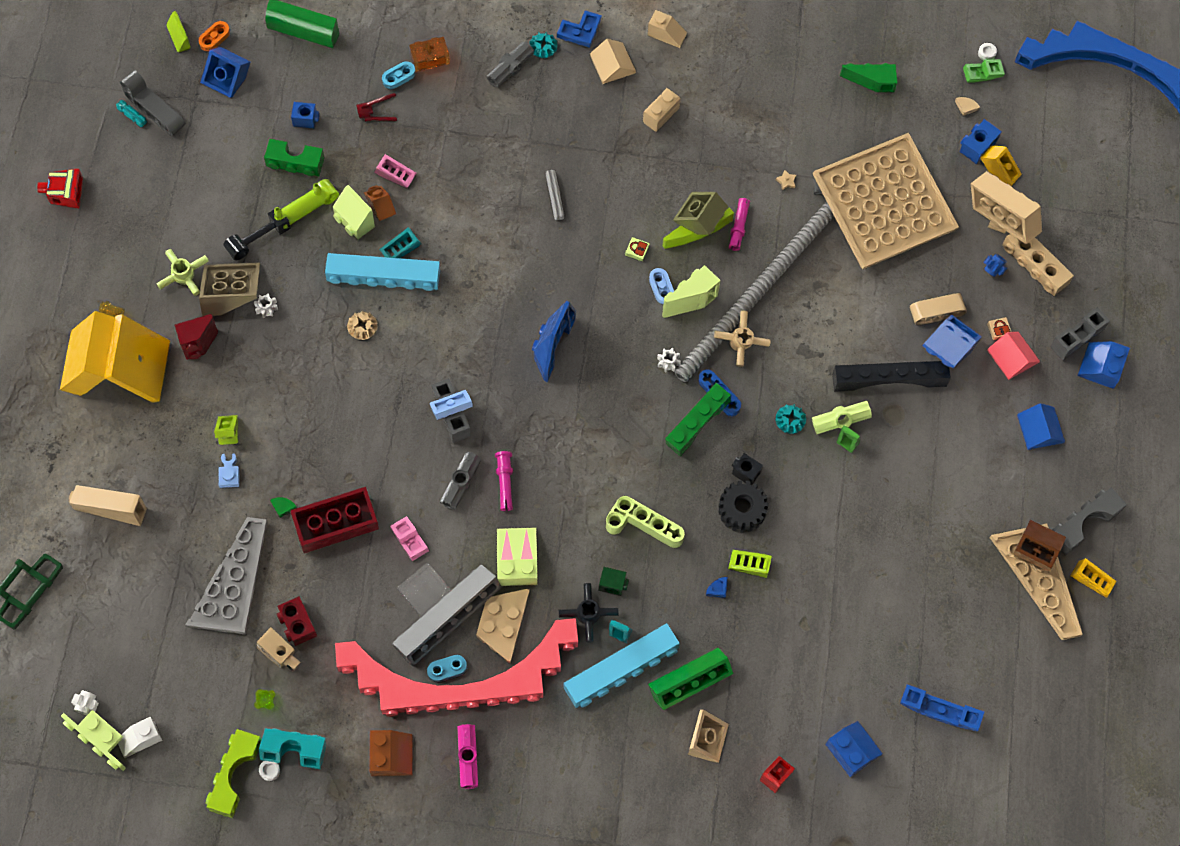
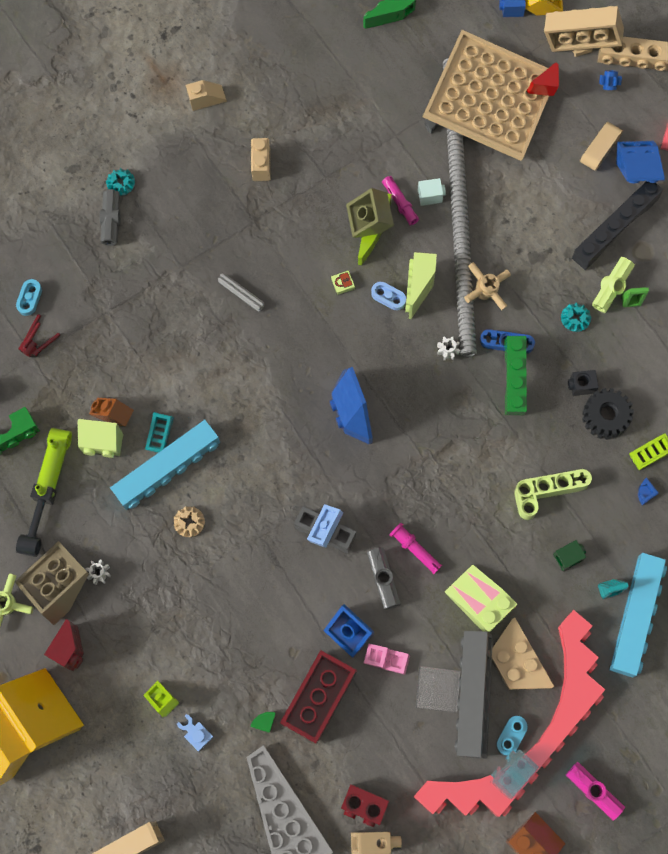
camera: 35 degrees left, 5 degrees up
(386, 160) = (92, 384): bright pink slope -> none
(400, 495) = (348, 631): none -> blue slope
(418, 687) = (513, 774): none -> clear light blue brick
(429, 54) = (38, 260): clear orange brick -> none
(580, 33) = (142, 149): blue plate -> none
(588, 620) = (570, 601): black bar -> none
(612, 61) = (185, 152): tan slope -> none
(768, 236) = (431, 191): none -> light aqua brick
(786, 180) = (401, 138): tan piece -> none
(936, 224) = (546, 83): none -> red slope
(998, 328) = (655, 125): tile -> none

